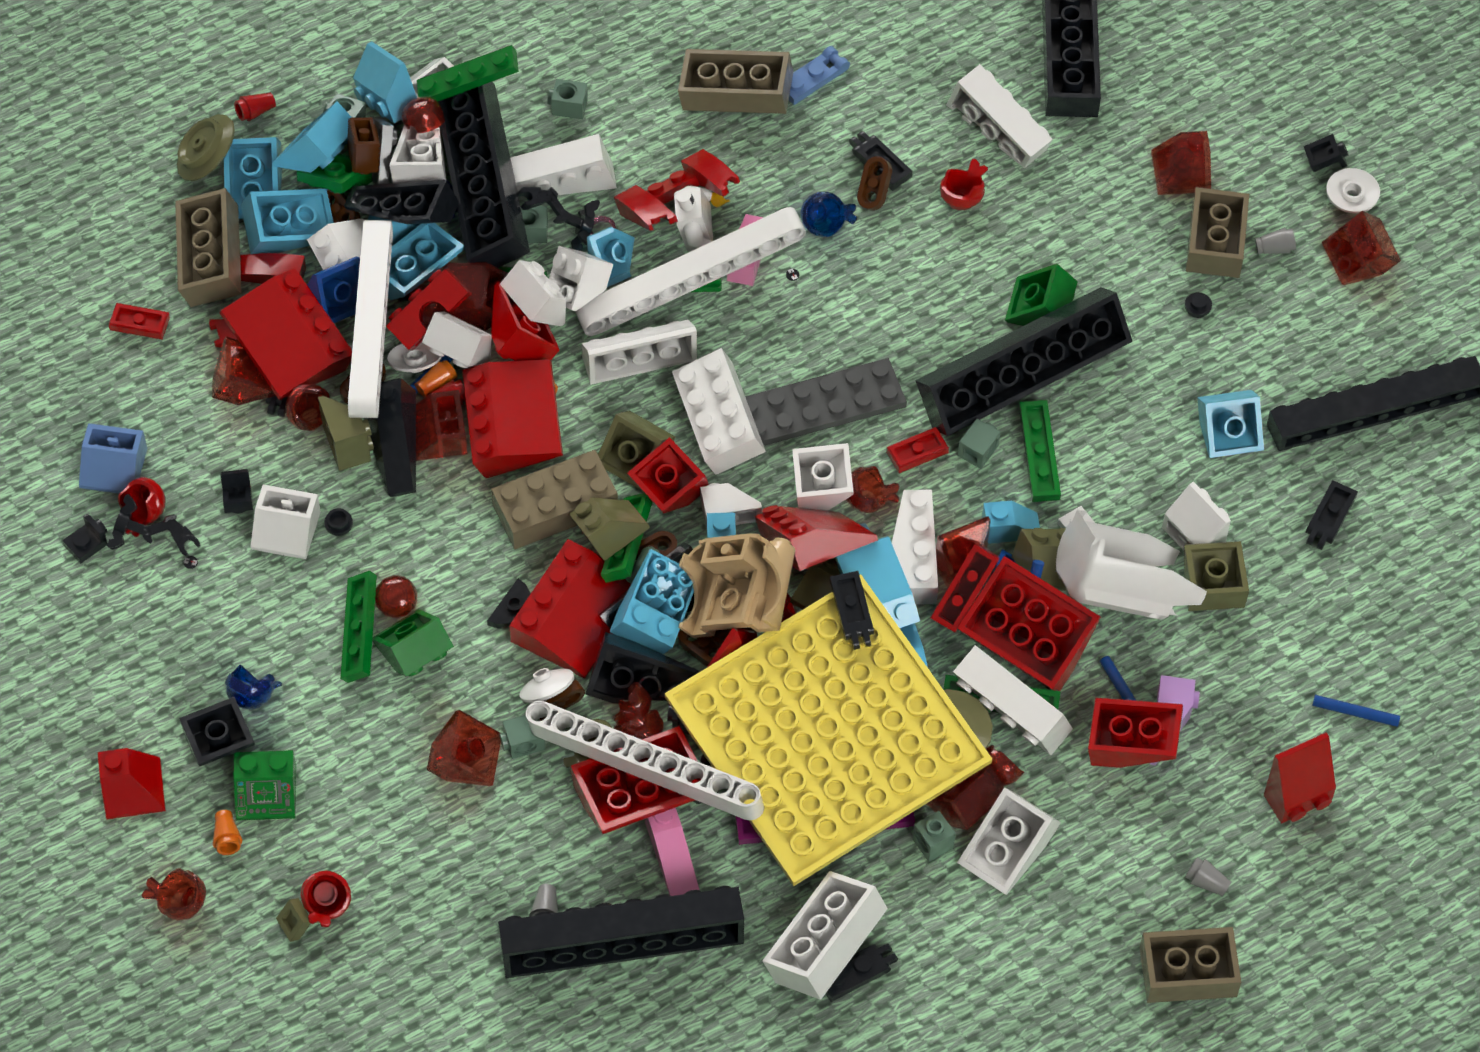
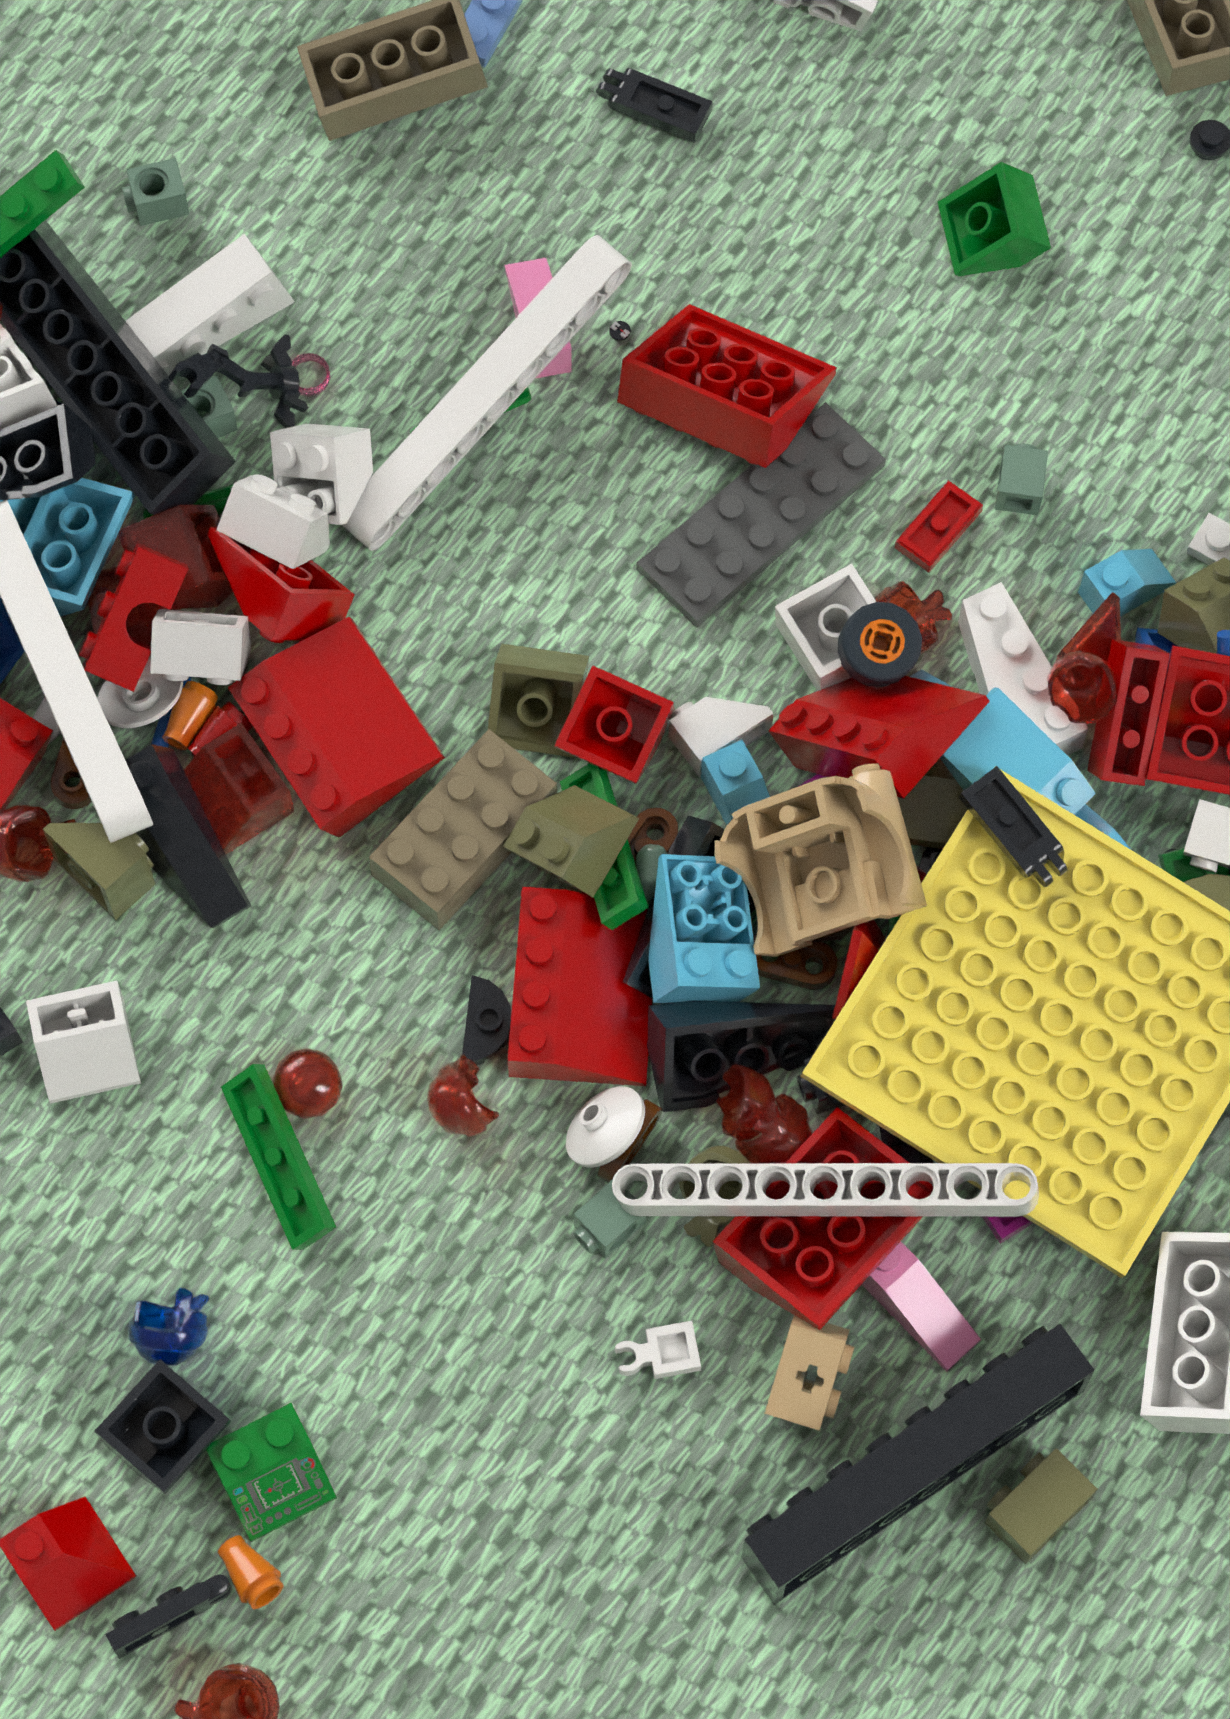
camera: 25 degrees left, 10 degrees up
(169, 834) = (172, 1610): none -> black hinge
(293, 919) = (424, 1663): olive plate -> none
(325, 897) = (456, 1610): red hat -> none
(338, 522) = (159, 1003): black plate -> none
(413, 642) = (371, 1144): green slope -> none
(465, 751) = (538, 1282): clear red slope -> none
(471, 636) = (453, 1101): none -> clear red hat
(517, 819) = (668, 1350): none -> white plate
(545, 900) = (777, 1470): light grey cone -> none
(574, 865) = (802, 1399): none -> tan brick
(615, 248) = (345, 402): medium azure slope -> none
(640, 351) = (467, 543): white slope -> none
(648, 206) = (358, 312): red wedge -> none
(682, 988) = (1039, 1504): none -> olive brick
(695, 216) = (441, 302): white torso -> none
(718, 411) = (633, 591): white brick -> none
(826, 214) = (627, 217): clear blue hat -> none
(832, 323) = (723, 384): none -> red slope
(839, 500) = (866, 654): none -> black wheel
(872, 183) = (669, 143): reddish brown plate -> none
(941, 558) = (1082, 687): none -> clear red hair
(963, 188) = (800, 97): red hat -> none
(1024, 361) = (1026, 330): black brick -> none
(1039, 451) = (1109, 454): green plate -> none

